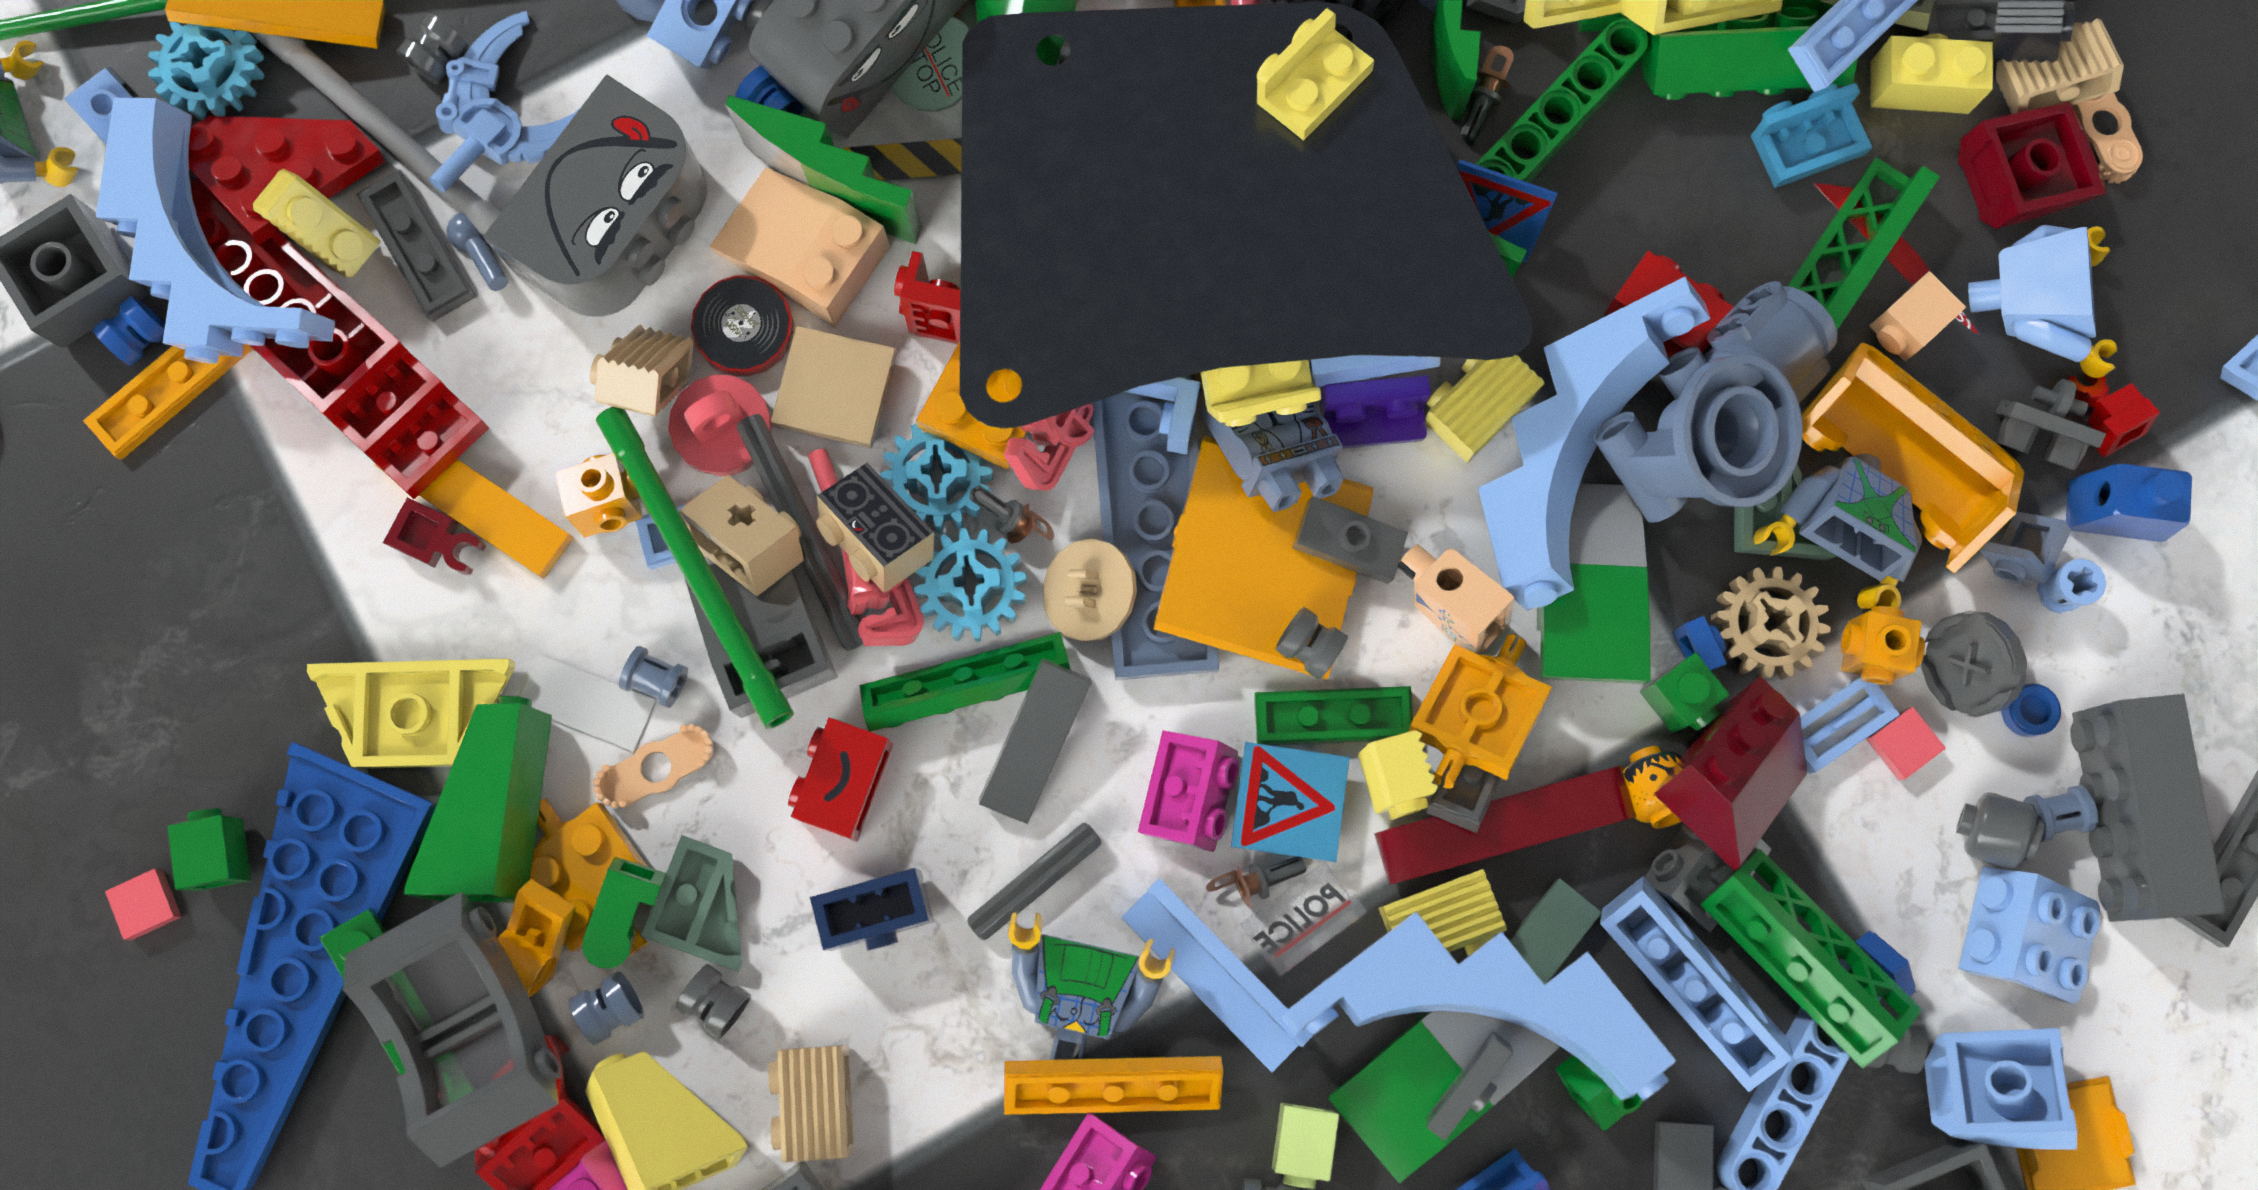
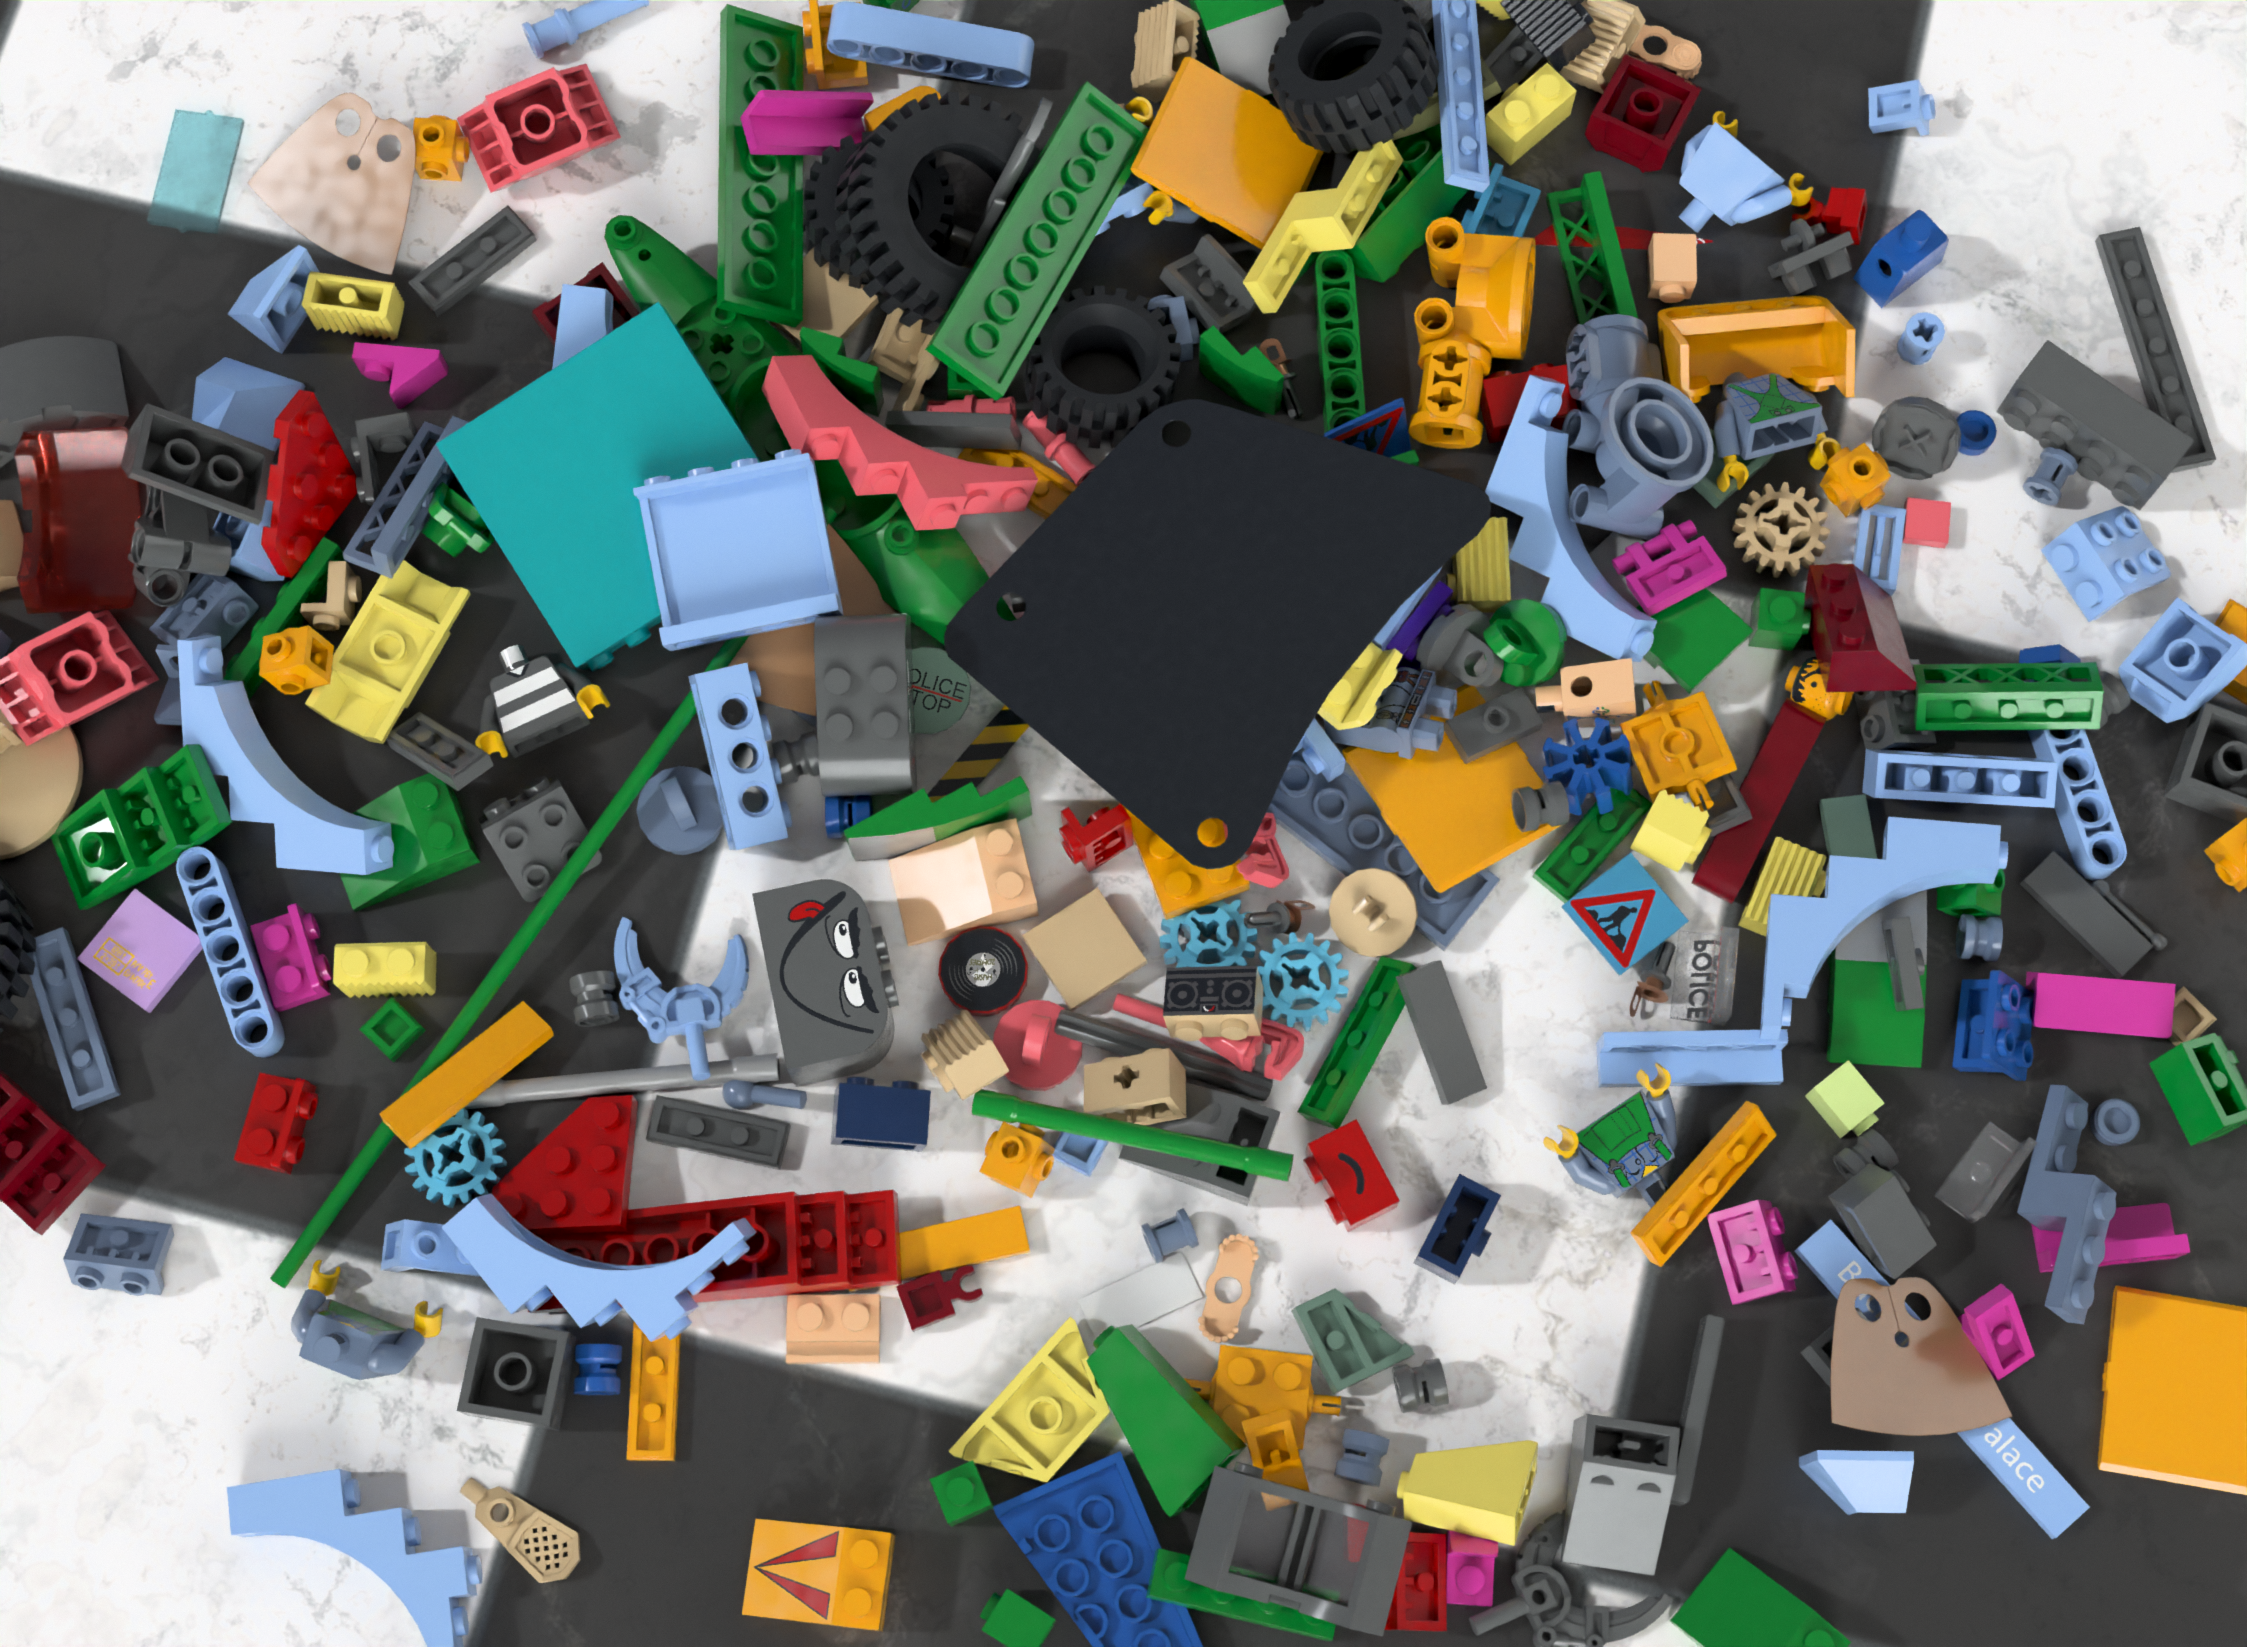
camera: 45 degrees left, 5 degrees down
(120, 661) = (819, 1574): none -> light orange slope
(280, 707) = (961, 1493): none -> green brick
(316, 223) = (654, 1176): light yellow brick -> none
(335, 482) = (833, 1329): none -> light nougat plate
(535, 354) = (880, 1115): none -> dark blue brick
(611, 925) = (1310, 1386): green leg -> none
(812, 1103) = (1544, 1380): tan brick -> none
(1034, 881) = (1527, 1117): dark grey axle -> none
(1189, 790) = (1559, 969): dark pink bracket -> none
(1311, 75) = (1194, 469): light yellow bracket -> none
(1386, 446) = (1454, 647): none -> dark grey tile
(1414, 658) = (1608, 761): none -> blue gear
(1447, 498) = (1529, 641): none -> green tile
(1566, 1130) = (1979, 937): none -> sand blue wheel
(1634, 568) = (1673, 576): none -> dark pink plate
(1702, 639) = (1752, 578): blue plate -> none
(1711, 206) = (1458, 342): none -> light orange piece
(2000, 830) = (2029, 518): dark grey head -> none
(2028, 548) = (1876, 340): sand blue bracket -> none

